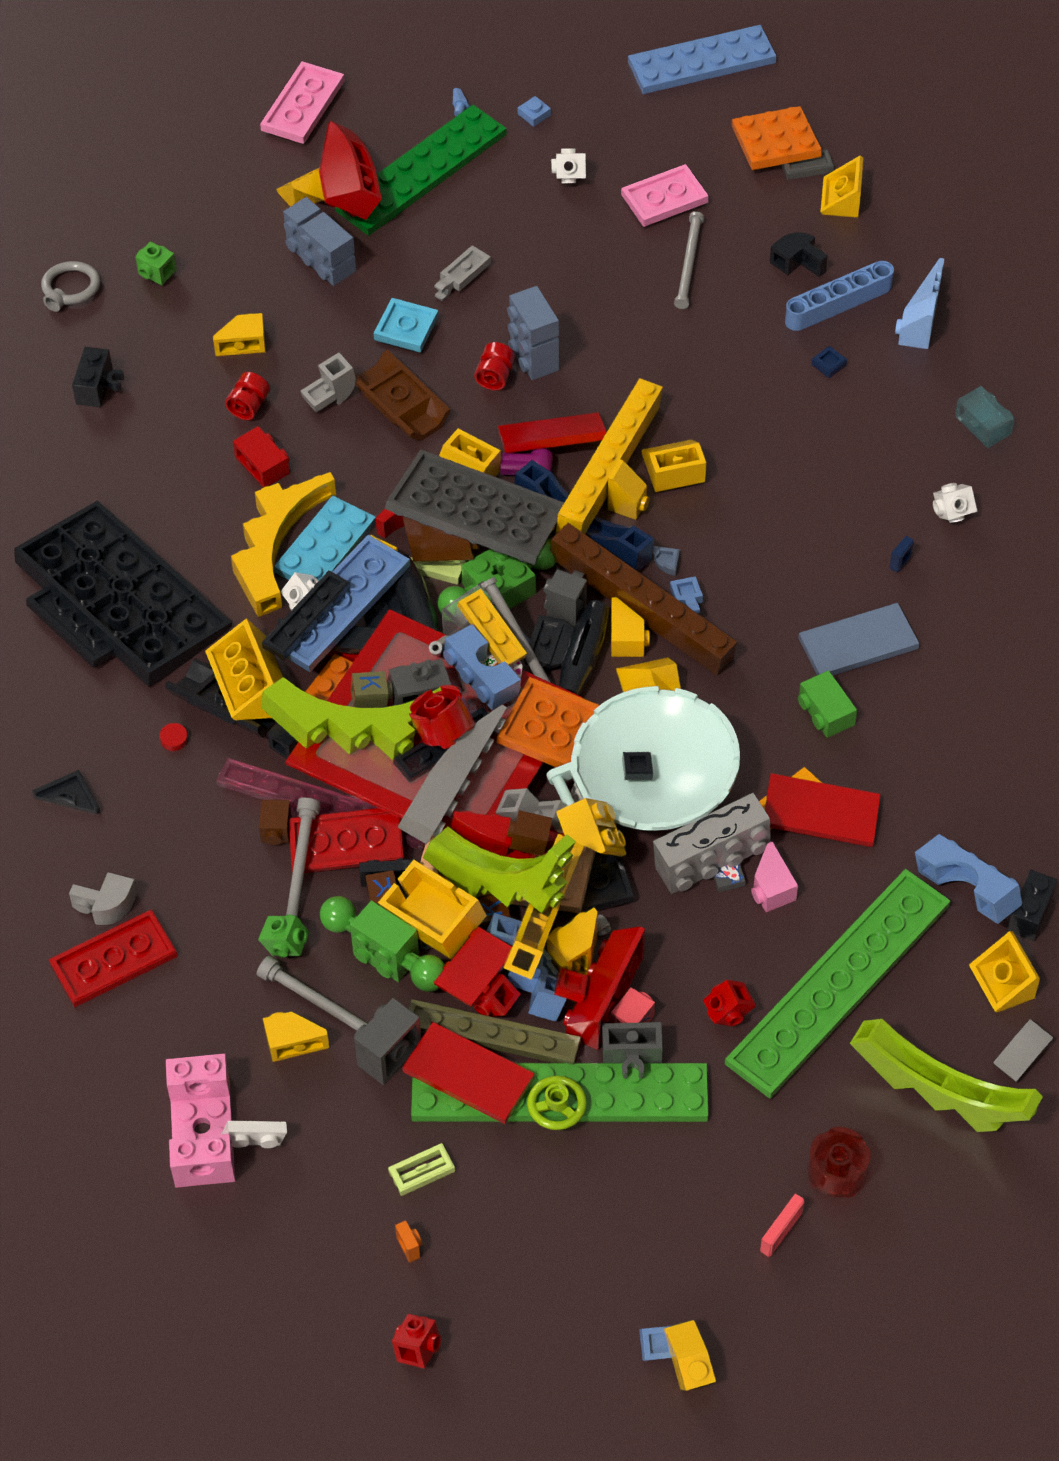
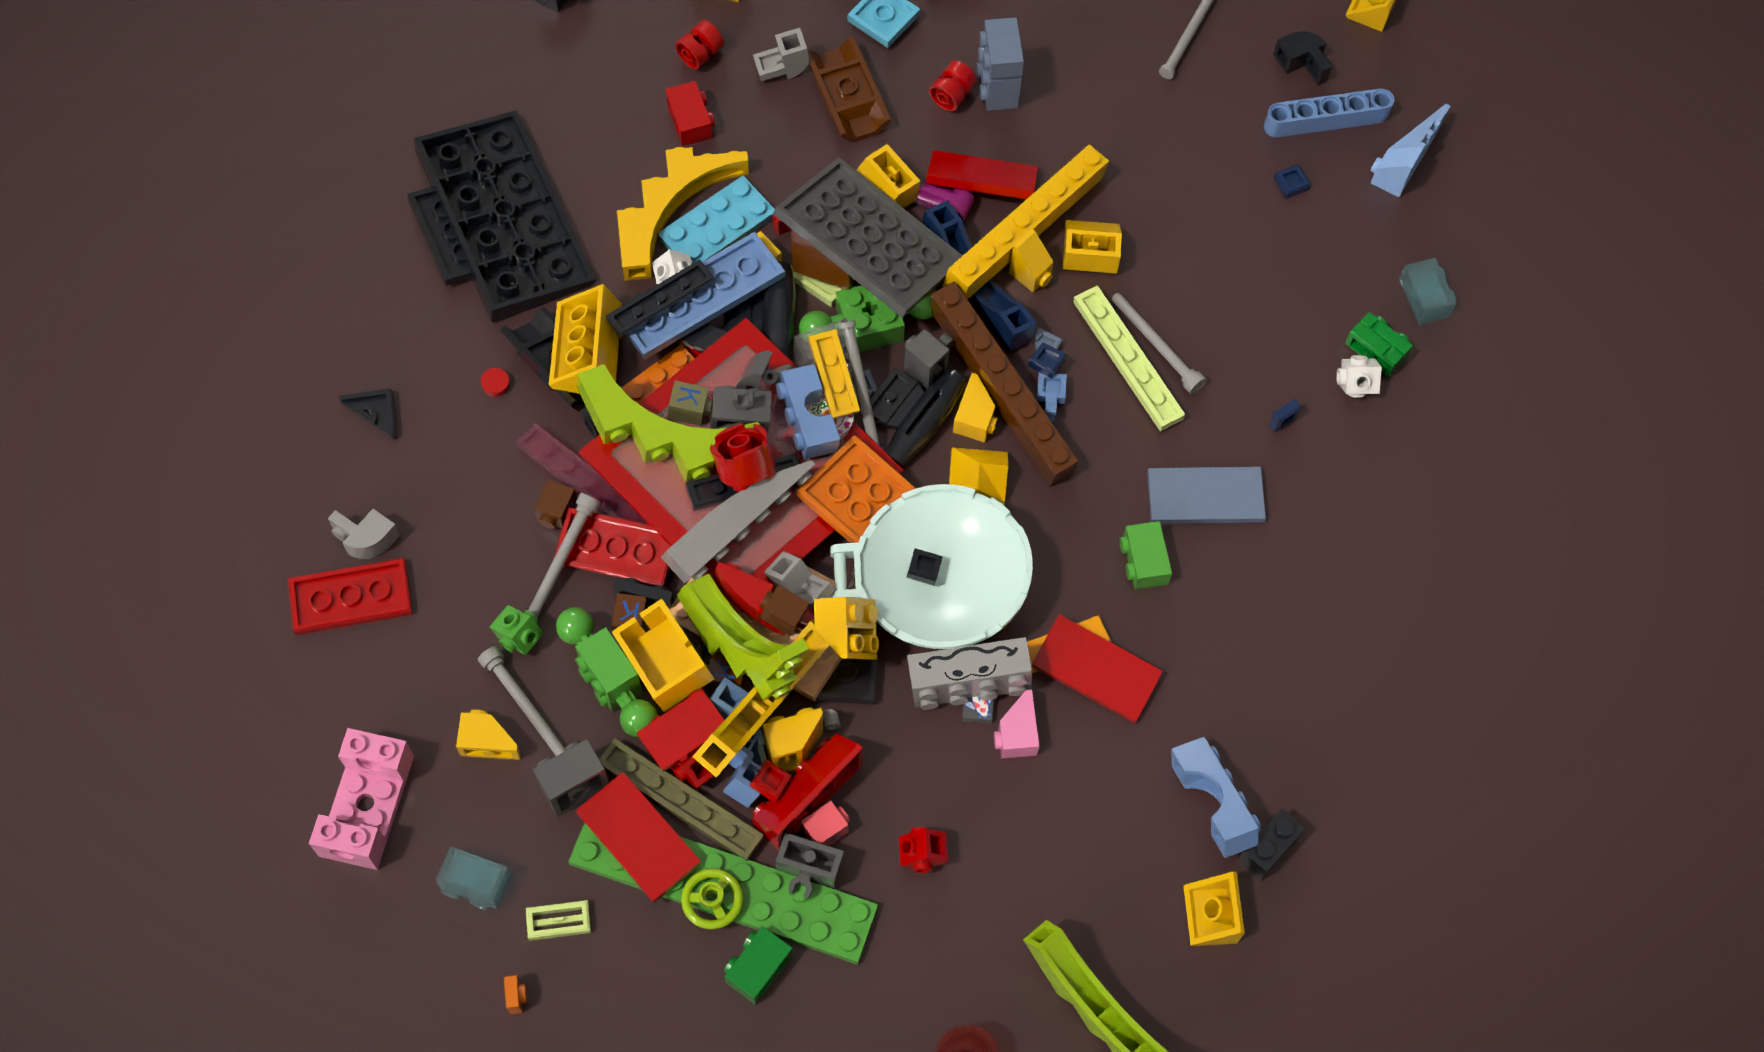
camera: 15 degrees right, 10 degrees up
(261, 1133) = (420, 835): white plate -> none
(330, 1156) = (473, 878): none -> clear light blue brick
(420, 644) = (754, 370): none -> dark grey slope
(620, 1146) = (758, 964): none -> green brick
(673, 569) = (1047, 360): none -> dark blue tile
(745, 547) = (1129, 358): none -> yellowish green plate
(808, 549) = (1191, 379): none -> light grey piece
(837, 983) = (1042, 862): bright green plate -> none
(959, 468) = (1377, 340): none -> green brick
(1023, 1050) = (1201, 1000): light grey slope -> none

